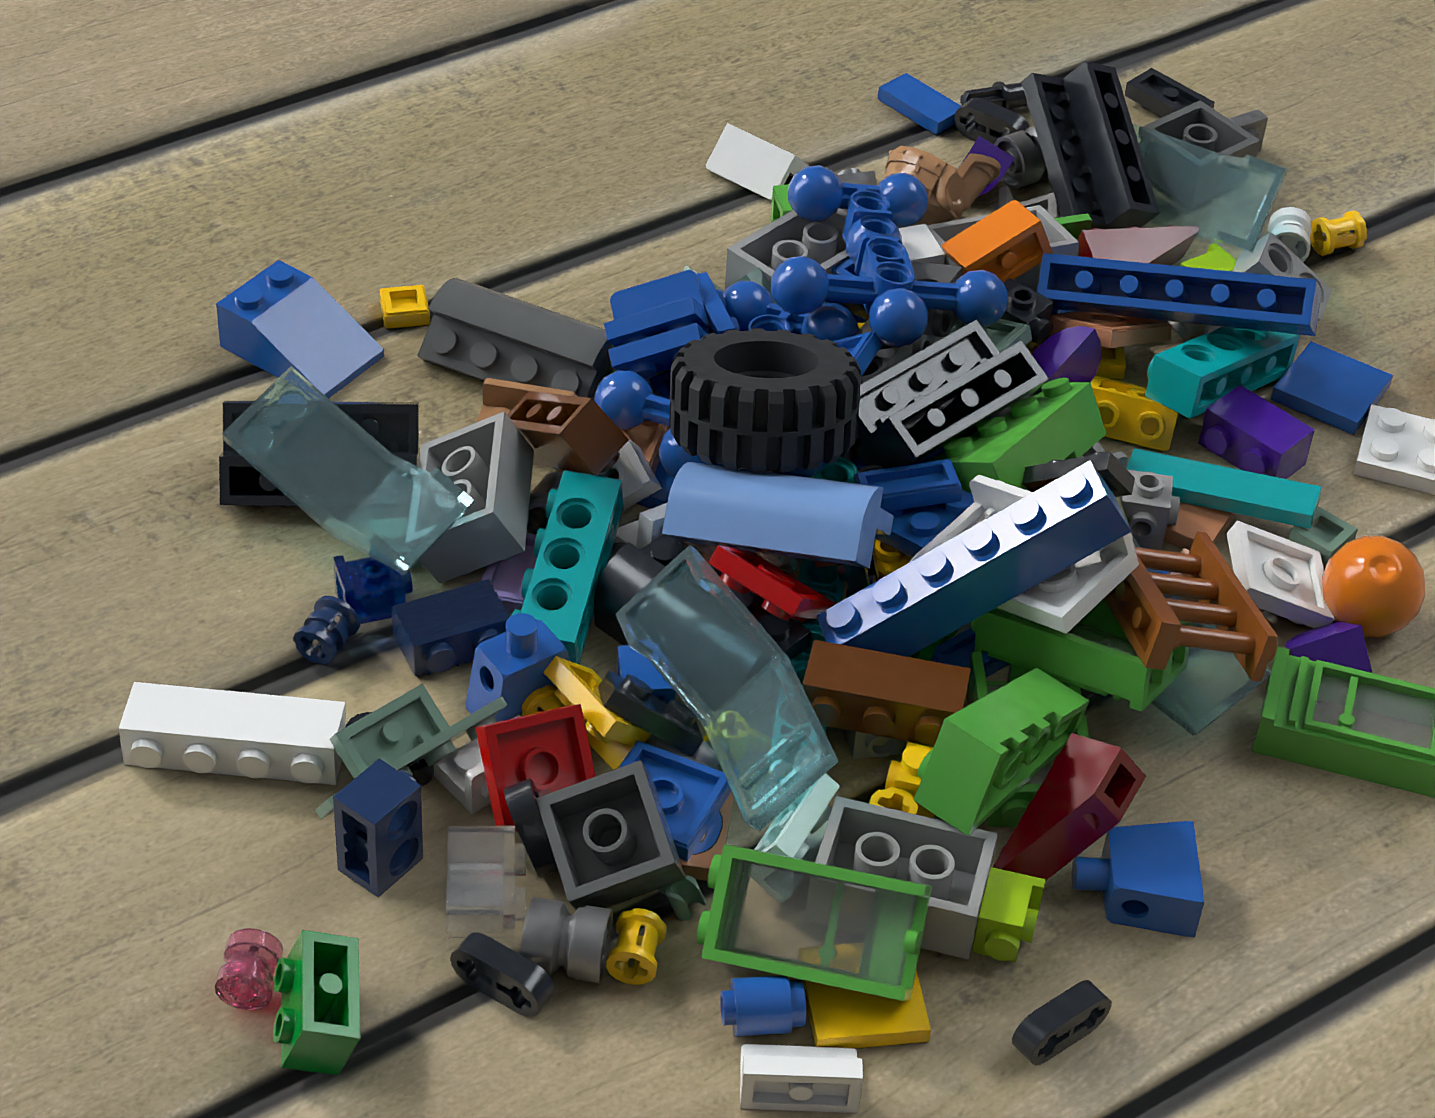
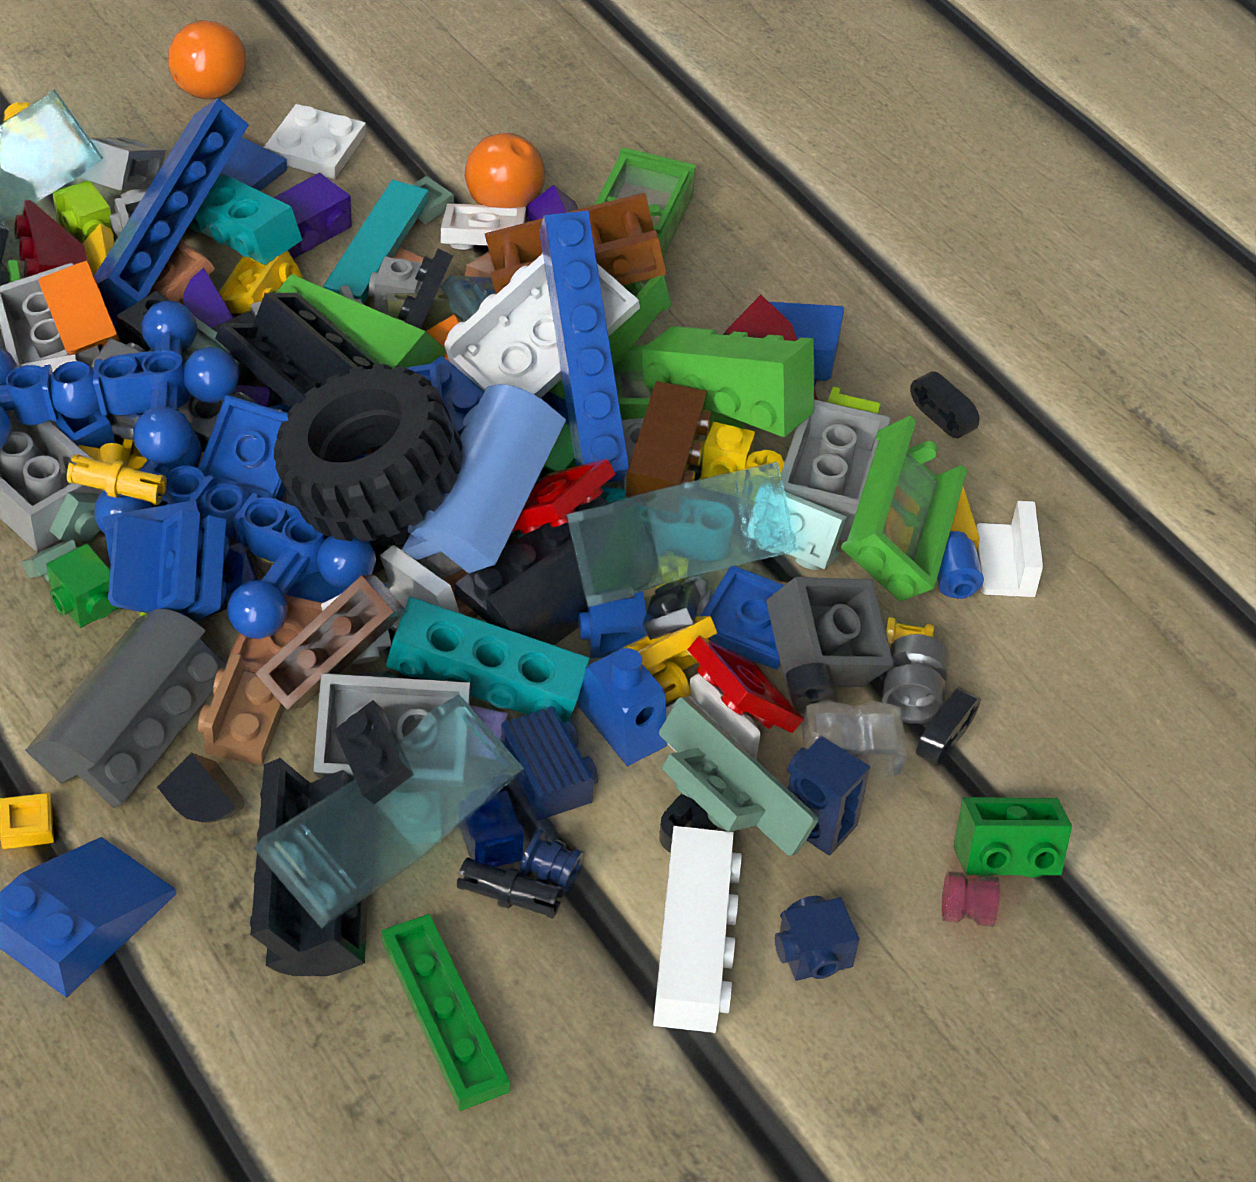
camera: 90 degrees left, 5 degrees up
(162, 559) = (445, 1012): none -> green plate
(210, 831) = (816, 938): none -> dark blue brick
(297, 603) = (510, 887): none -> black pin
(387, 448) = (373, 752): none -> black plate
(438, 400) = (201, 790): none -> black brick
(750, 272) = (116, 479): none -> yellow pin

